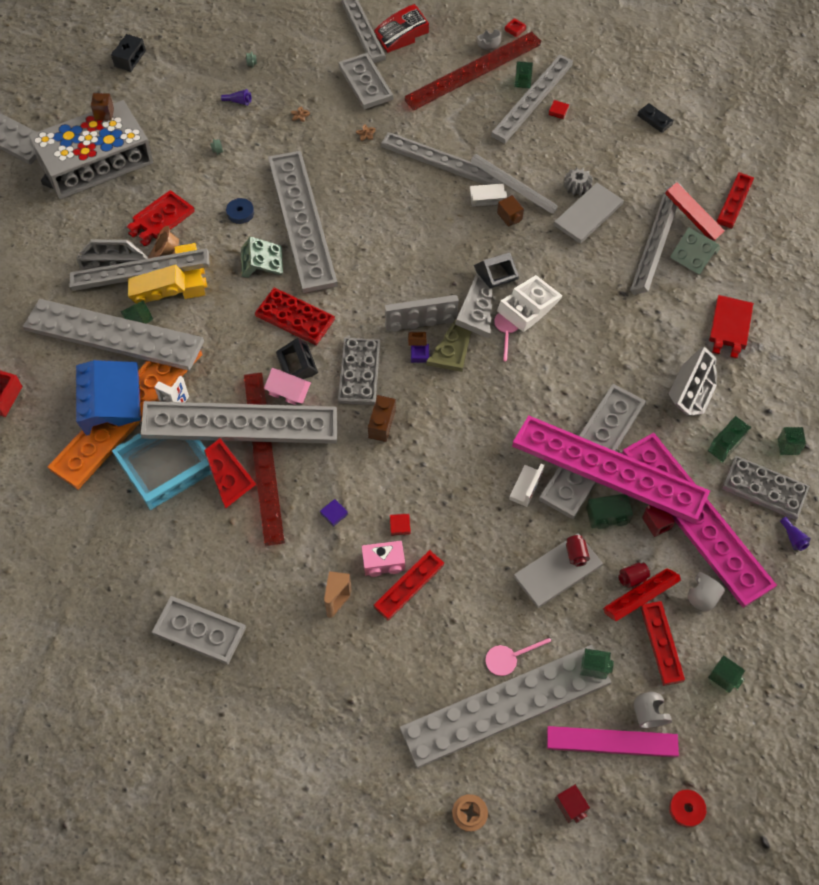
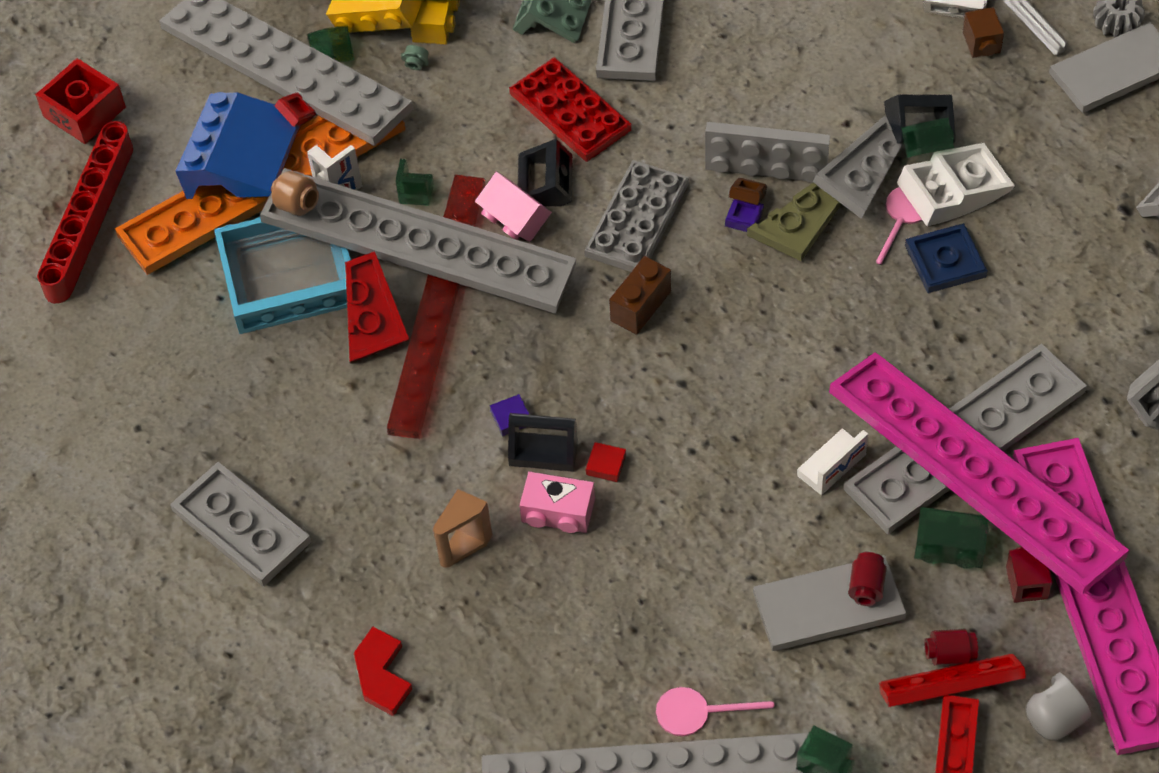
camera: 25 degrees right, 5 degrees down
(26, 468) = (85, 212): none -> red beam
(132, 361) = (295, 109): none -> red tile
(158, 416) = (294, 193): none -> medium nougat head
(191, 308) = (415, 57): none -> sand green plate
(222, 389) = (413, 187): none -> clear green panel
(321, 703) = (377, 684): none -> red tile
(361, 528) = (542, 450): none -> black tile
(408, 585) = (581, 554): red plate -> none
(507, 280) = (928, 137): none -> clear green brick
(540, 347) = (946, 258): none -> dark blue tile

